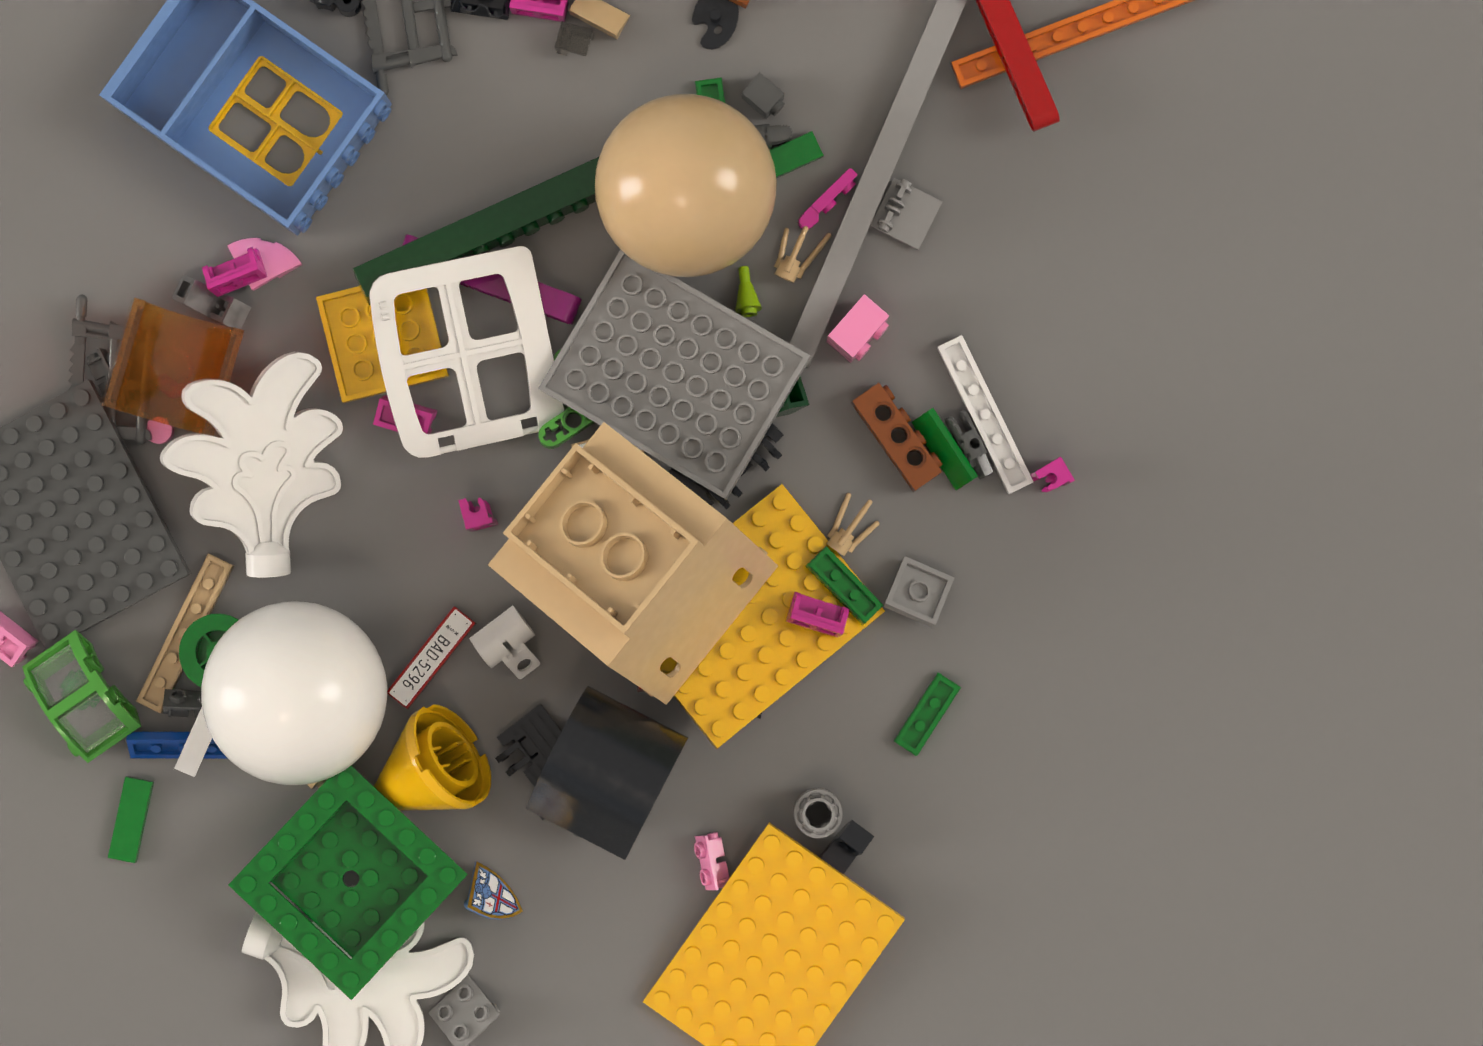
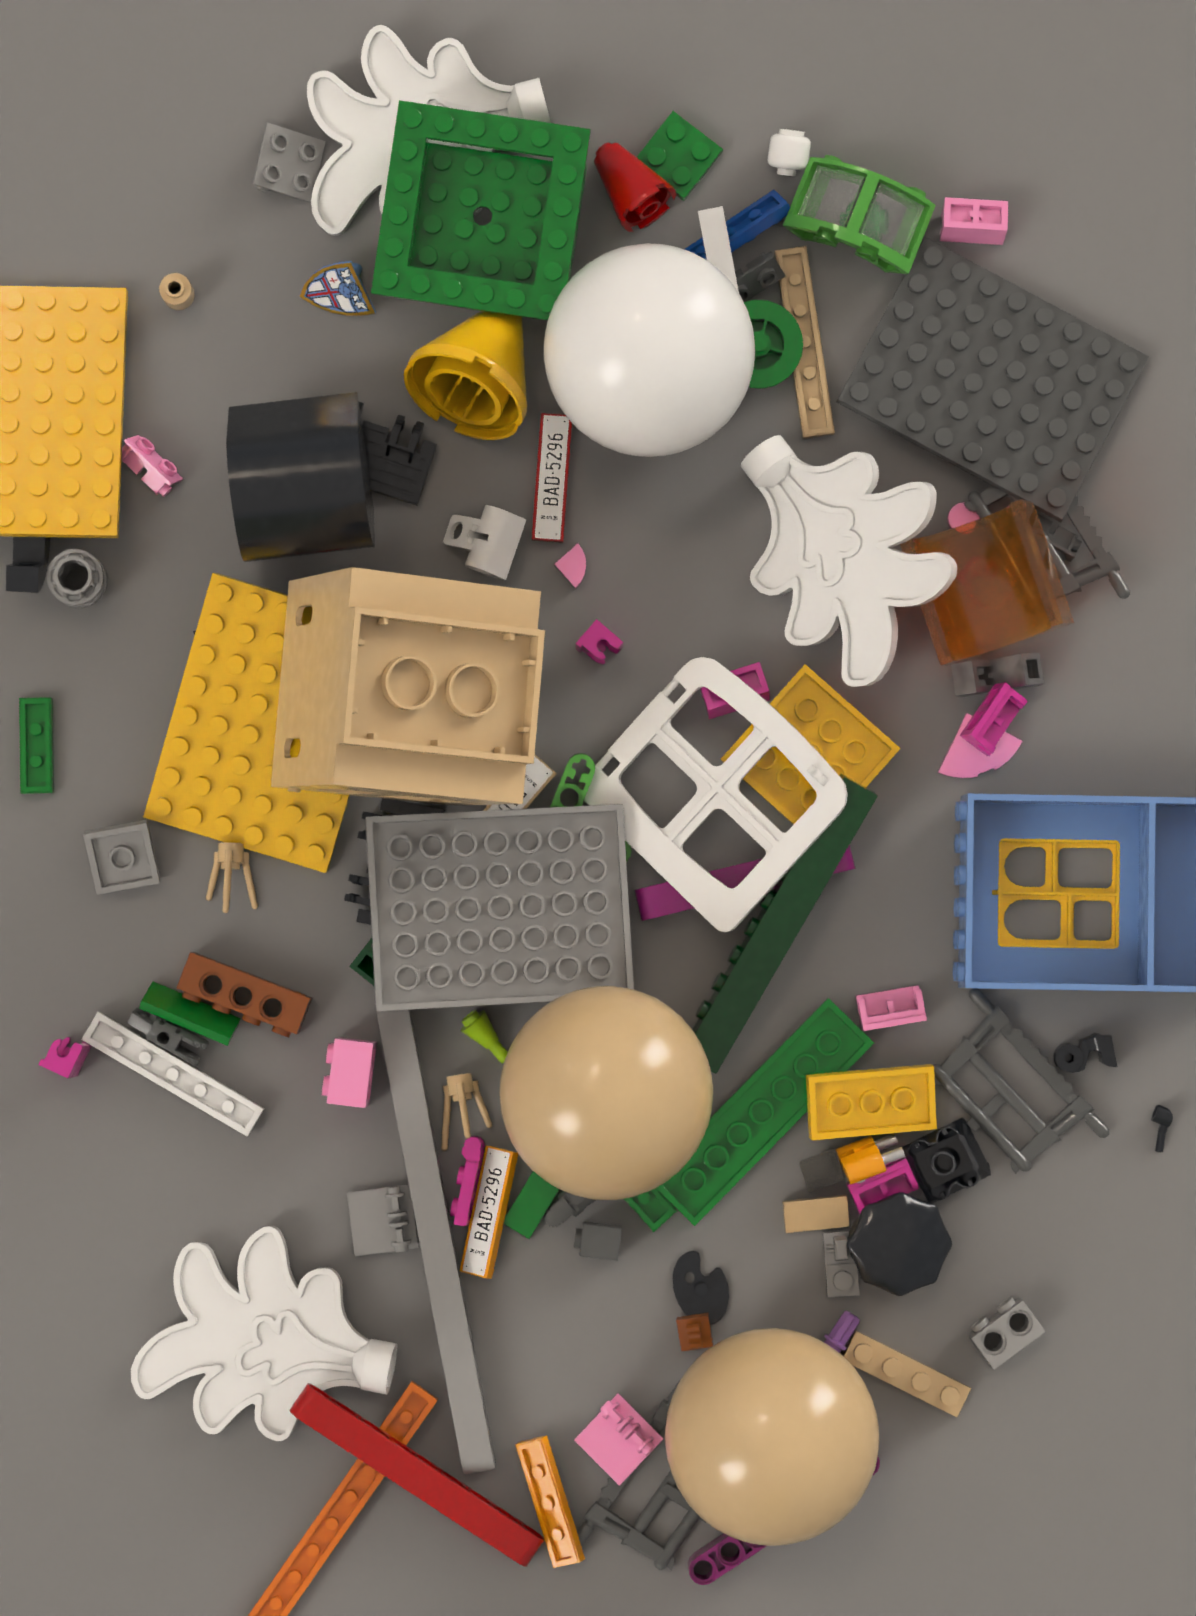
camera: 140 degrees right, 0 degrees up
(100, 777) = (789, 151): none -> white head
(130, 819) = (733, 132): green tile -> none
(182, 829) = (680, 154): none -> green plate
(229, 828) = (632, 186): none -> red cone
(448, 120) = (890, 1008): none -> bright pink hinge
(458, 584) = (573, 565): none -> bright pink tile
(506, 63) = (871, 1102): none -> yellow plate
(539, 27) = (863, 1157): none -> light orange piece
(575, 110) = (764, 1109): none -> green plate
(610, 965) = (183, 298): none -> tan brick
(817, 615) = (203, 767): dark pink hinge -> none
(827, 168) = (488, 1212): none -> tile
(844, 585) = (197, 814): green tile -> none
(1048, 187) = (260, 1339): none -> white plant

